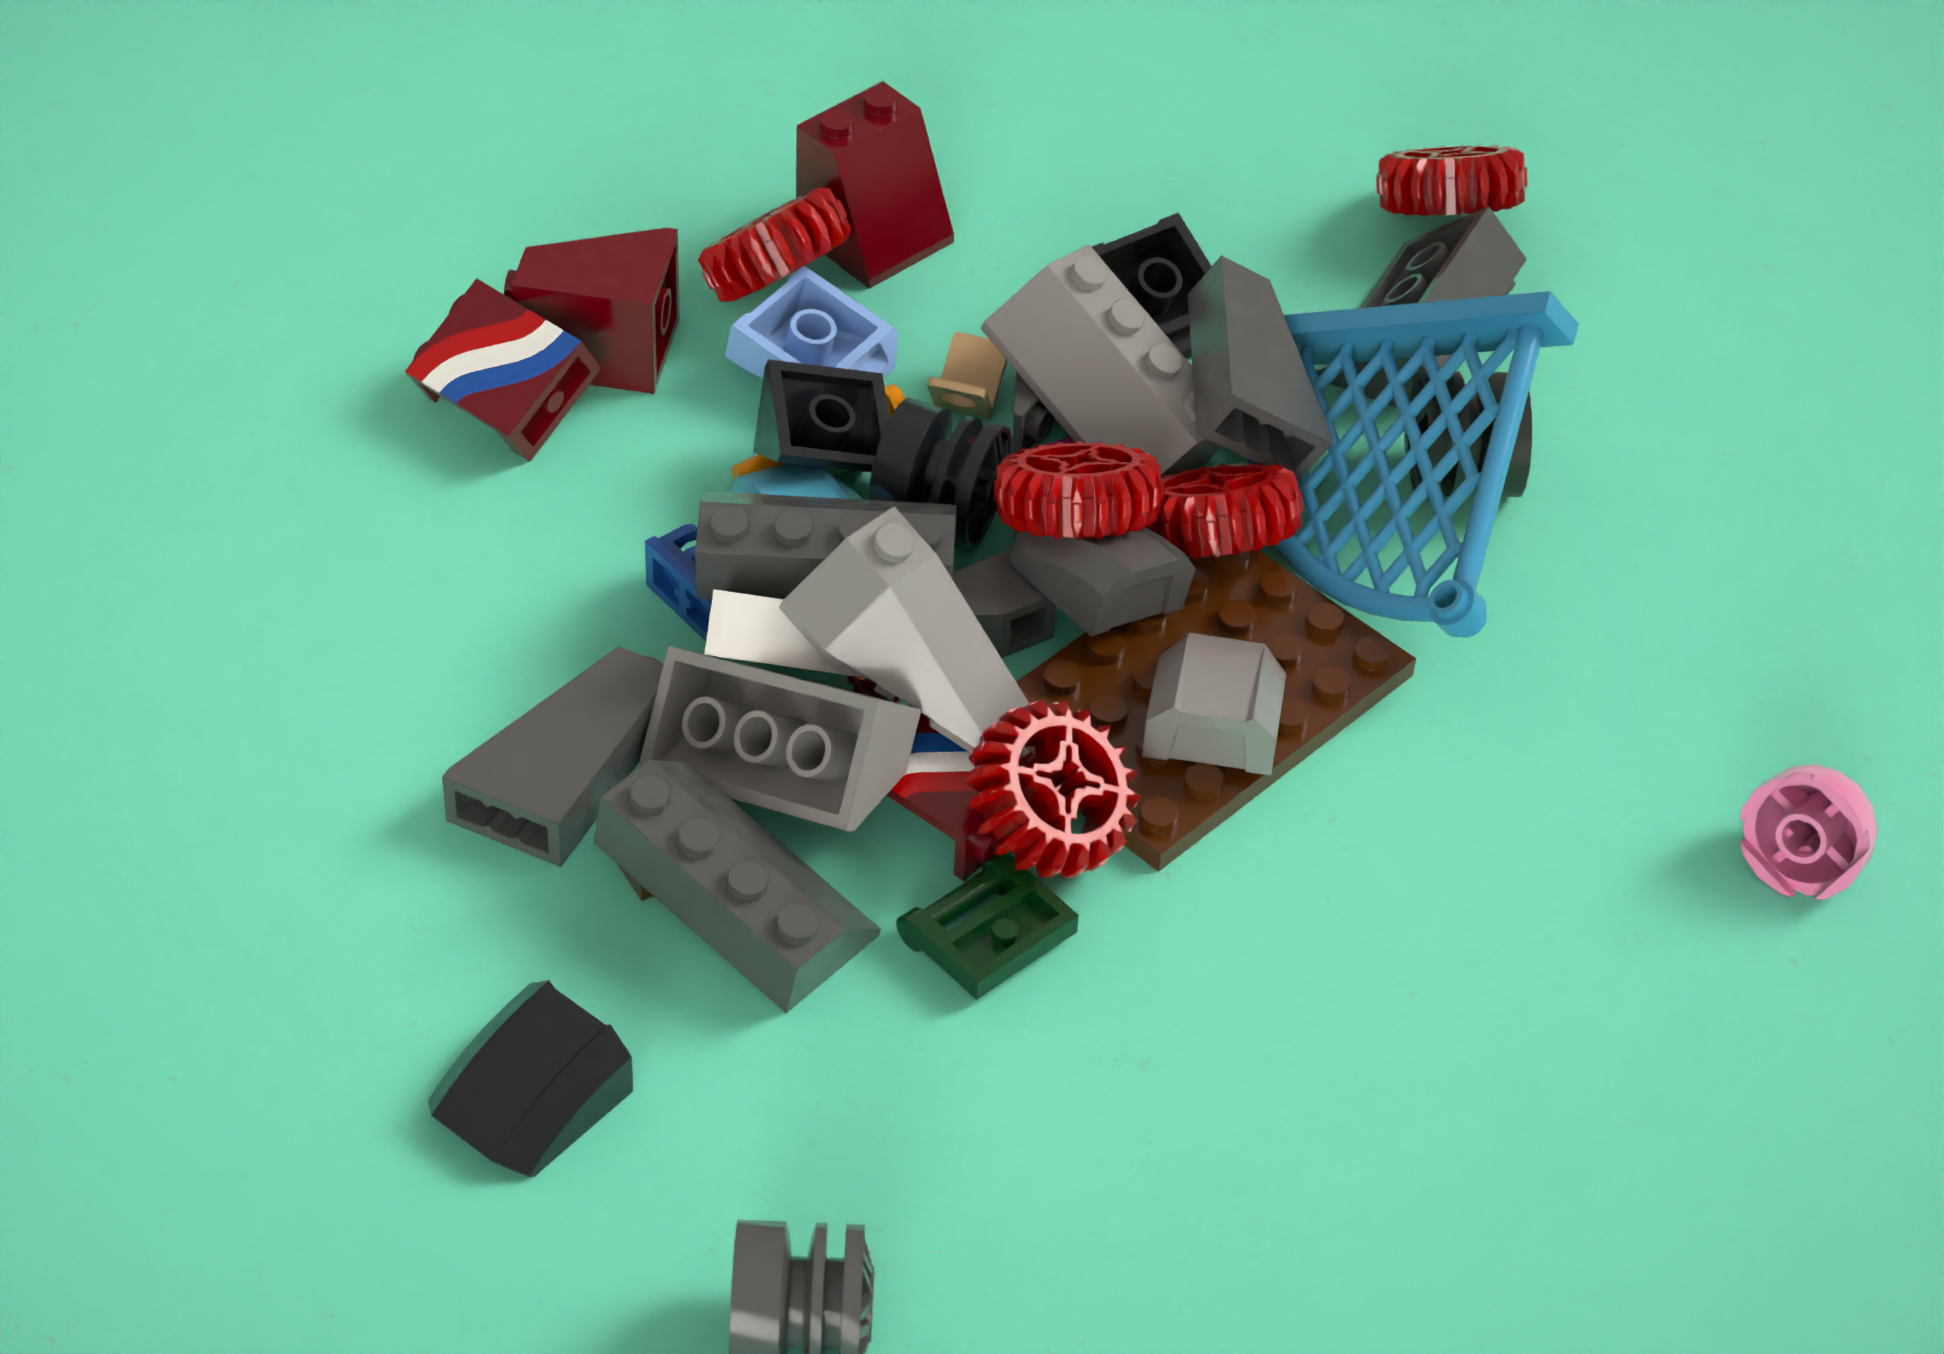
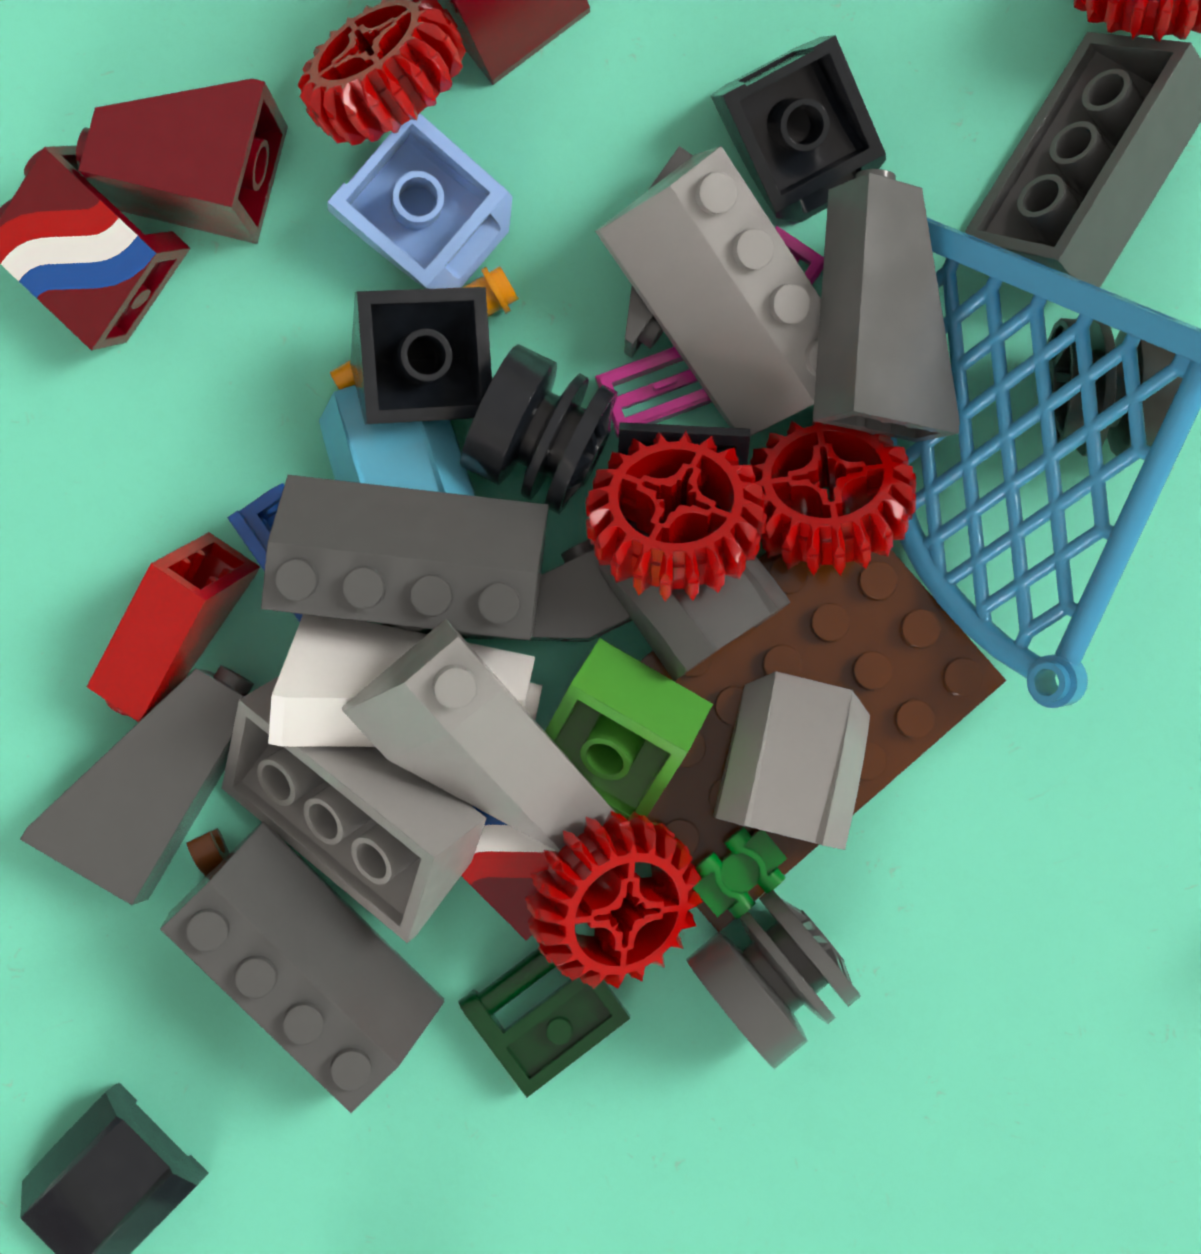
camera: 10 degrees right, 40 degrees up
(592, 610) = (170, 624): none -> red slope
(969, 376) = (581, 256): tan bracket -> none
(1056, 657) = (626, 727): none -> bright green slope
(1176, 783) = (750, 863): none -> green piece
(1220, 856) = (773, 978): none -> dark grey wheel

